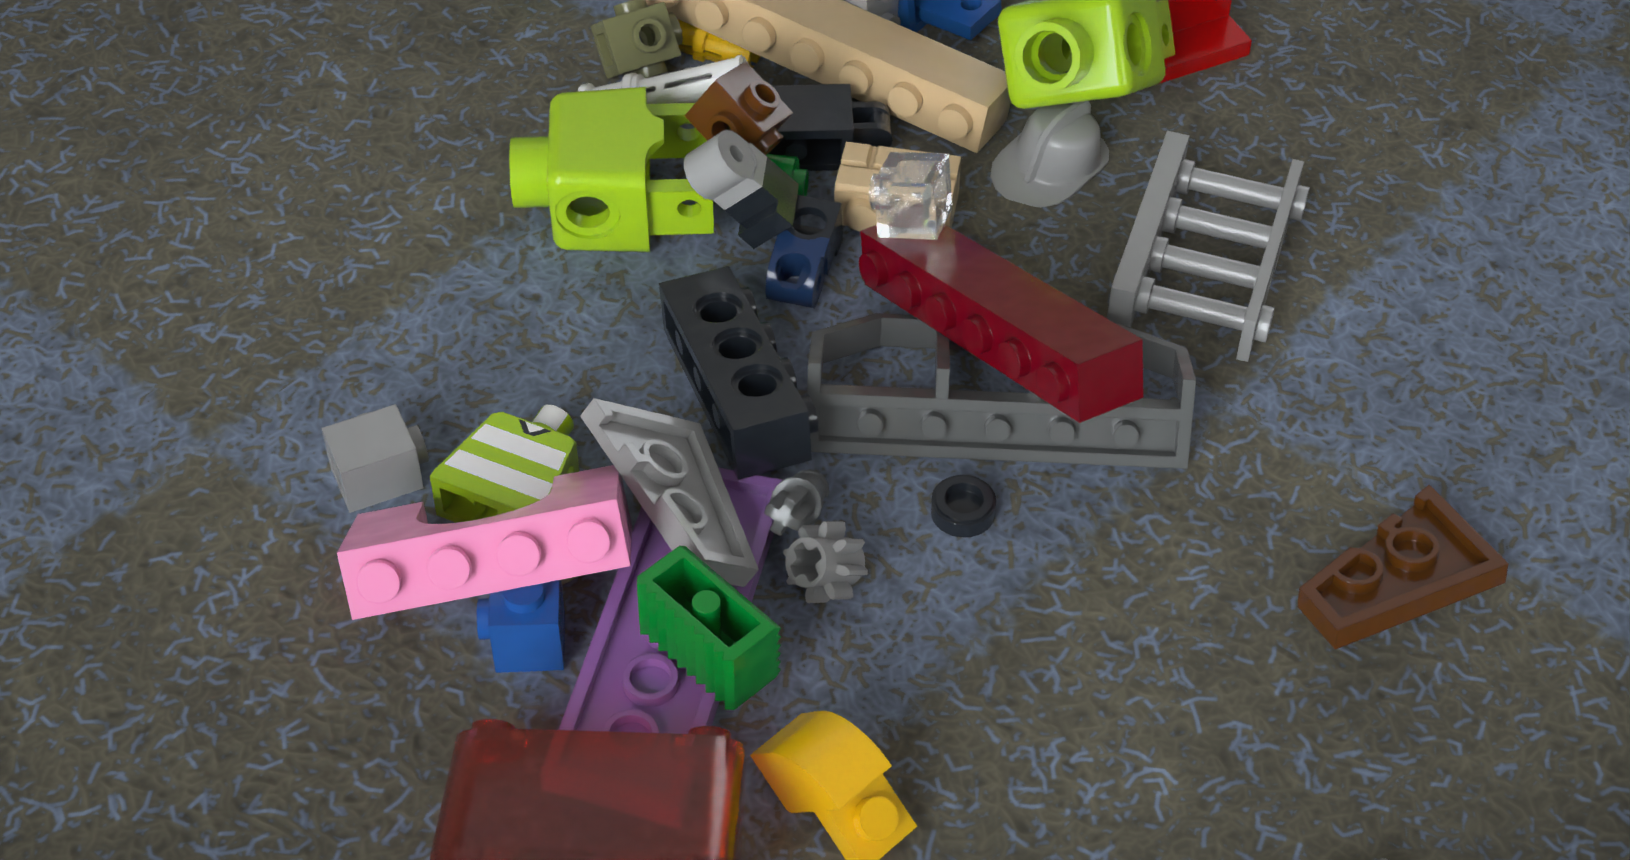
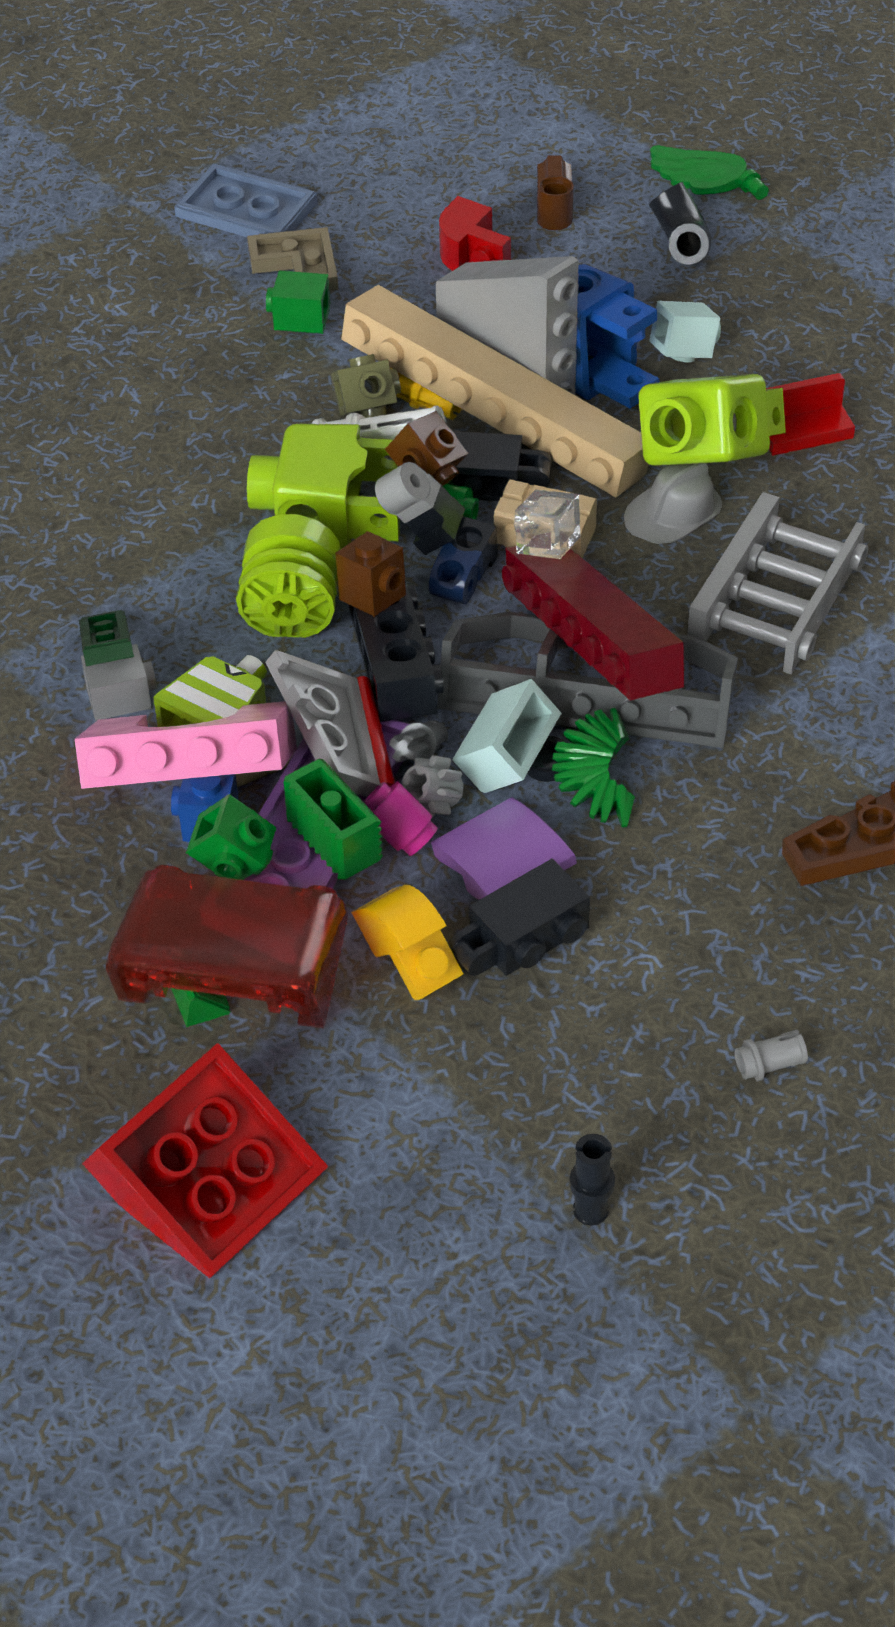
camera: 10 degrees right, 0 degrees up
(352, 400) = (105, 638): none -> dark green tile
(573, 672) = (232, 840): none -> green brick
(585, 293) = (288, 576): none -> lime wheel
(698, 281) = (371, 573): none -> reddish brown brick
(757, 541) = (375, 731): none -> red bar
(797, 607) = (402, 817): none -> dark pink brick
(911, 484) = (507, 736): none -> light aqua piece
(936, 645) = (500, 847): none -> medium lavender slope
(985, 742) = (522, 921): none -> black brick
(1021, 511) = (586, 762): none -> green hair

